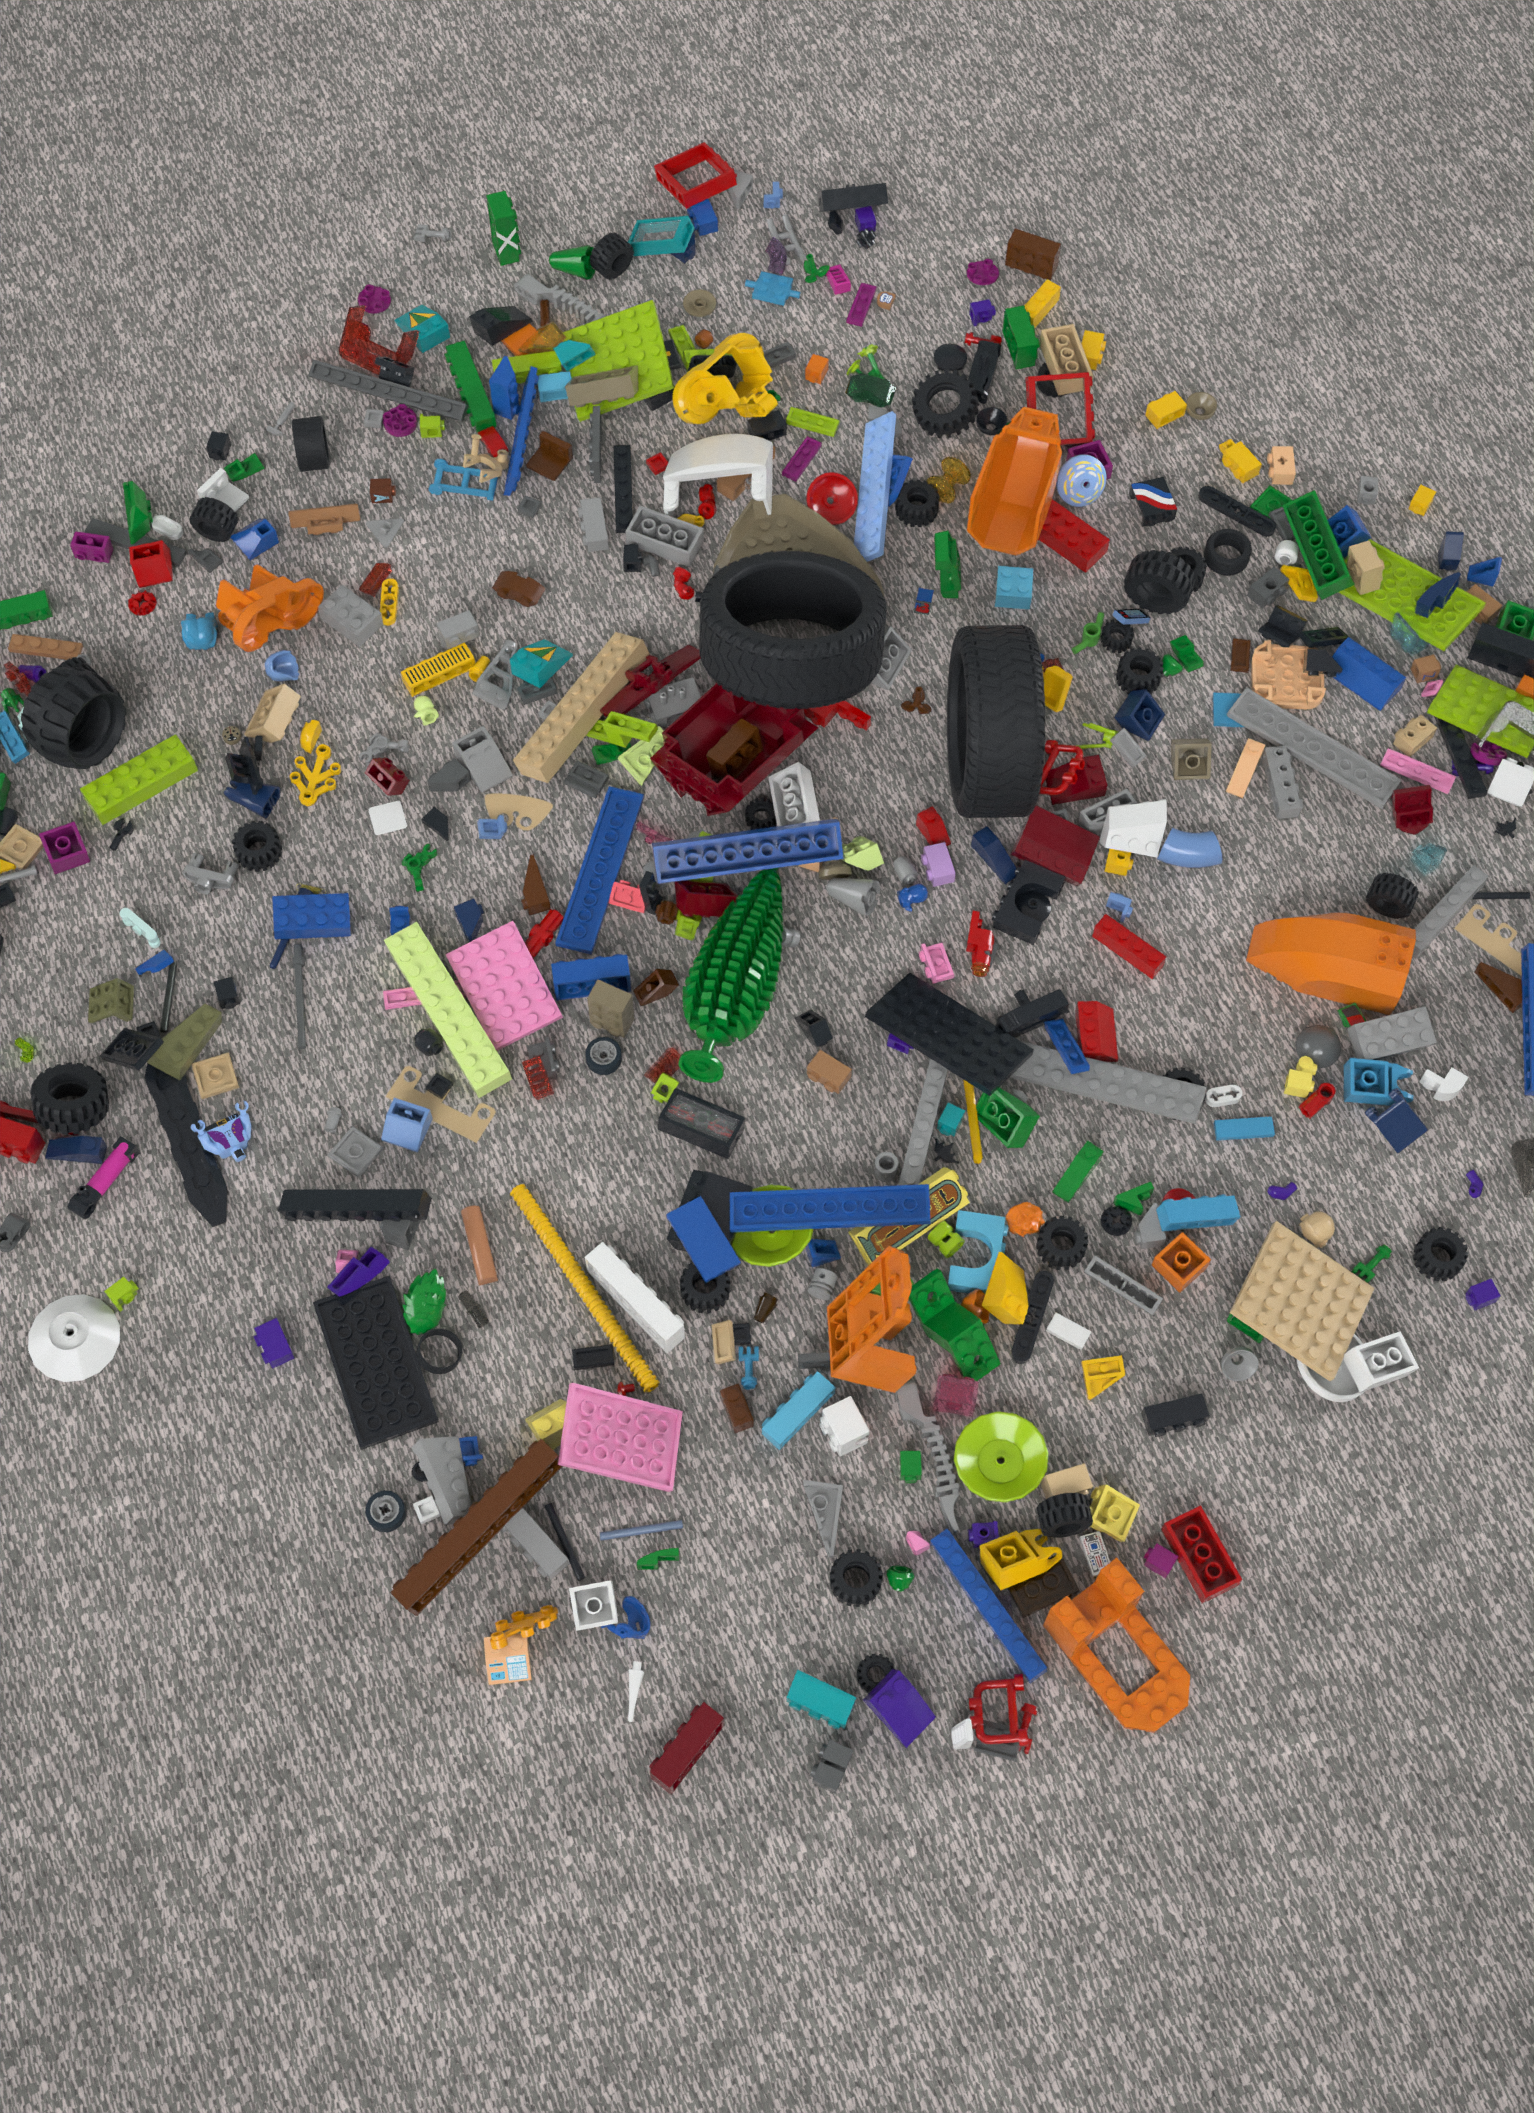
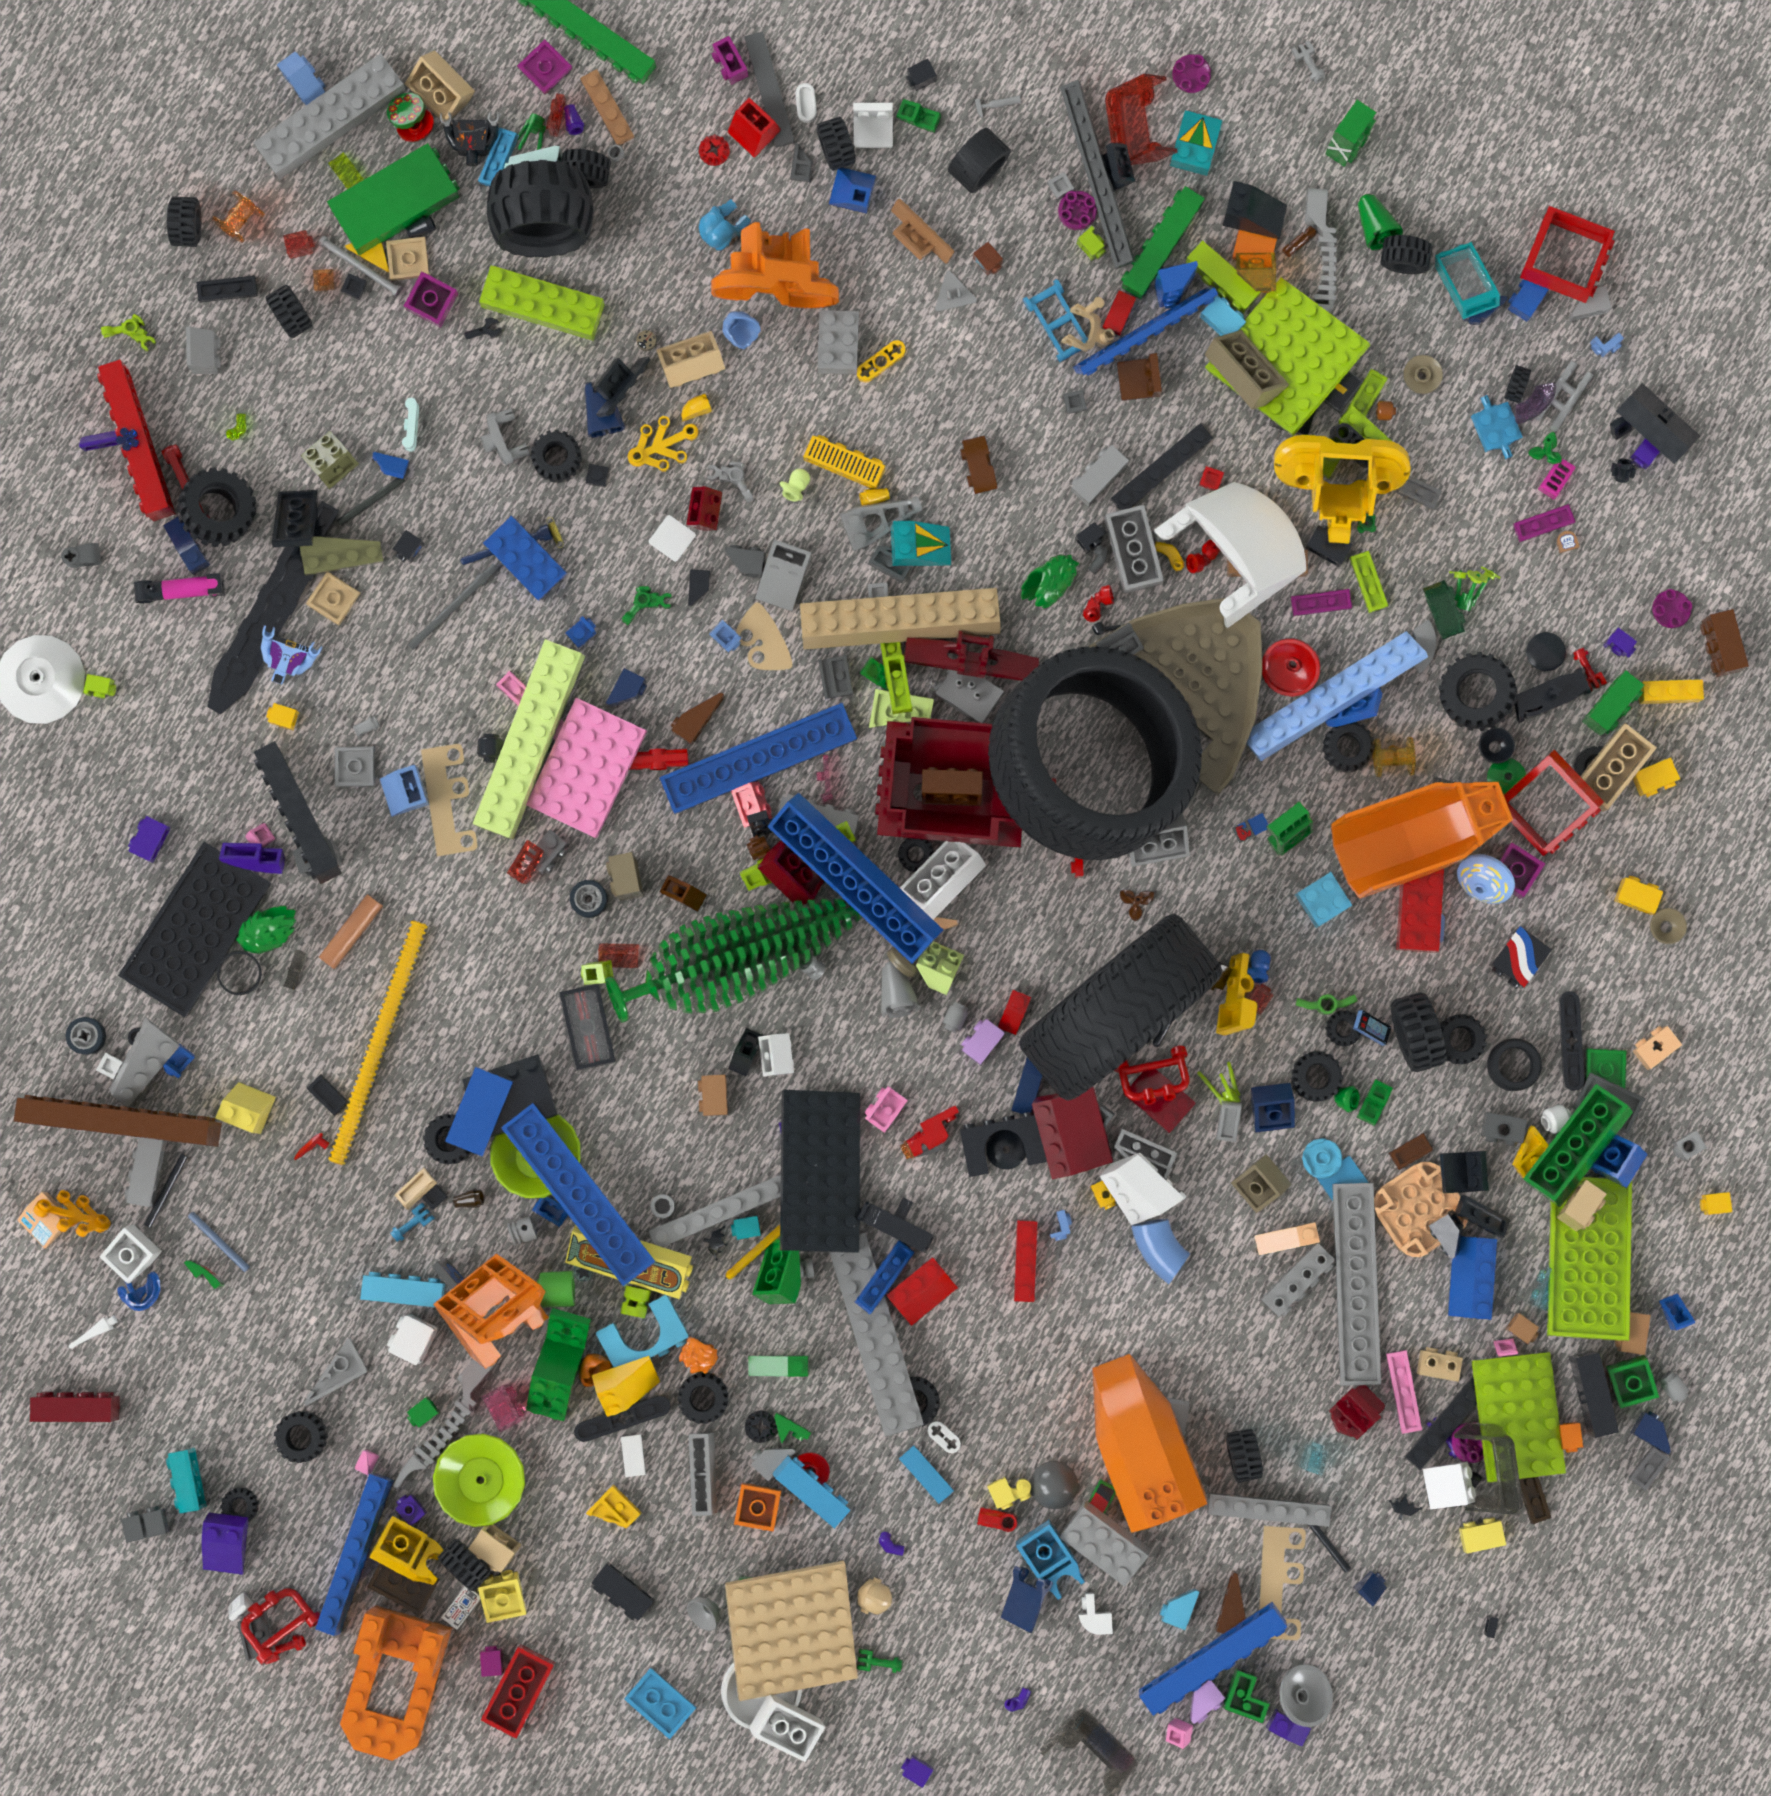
camera: 55 degrees right, 20 degrees up
(136, 511) = (794, 67): green wedge -> none
(258, 748) = (648, 376): black tile -> none
(270, 1173) = (282, 716): none -> yellow brick
(296, 833) = (597, 475): none -> black plate
(375, 578) = (895, 329): clear red slope -> none
(439, 1086) = (461, 786): black tile -> none
(457, 630) = (888, 453): light grey slope -> none
(573, 353) = (1260, 311): teal slope -> none
(578, 977) = (646, 835): blue brick -> none
(595, 444) = (1177, 414): dark grey plate -> none
(620, 1437) = (268, 1174): bright pink plate -> none
(635, 1297) = (395, 1092): white brick -> none
(640, 598) = (1050, 580): none -> green head
(736, 1408) = (367, 1241): reddish brown brick -> none
(755, 255) = (1517, 384): none -> black tyre
(816, 369) = (1431, 541): orange brick -> none
(833, 1006) = (776, 1054): none -> white brick
(900, 1577) = (328, 1469): green cone -> none
(913, 894) = (937, 1041): blue animal -> none
(1202, 710) = (1322, 1158): none -> medium azure tile
(1239, 460) = (1631, 1004): yellow brick -> none
(1290, 1452) = (660, 1703): none -> dark azure plate
(1437, 595) = (1601, 1292): dark blue slope -> none
(1449, 1242) = (926, 1732): black tyre -> none
(1450, 550) = (1671, 1269): dark blue slope -> none
(1481, 1022) = (1179, 1609): none -> medium azure slope

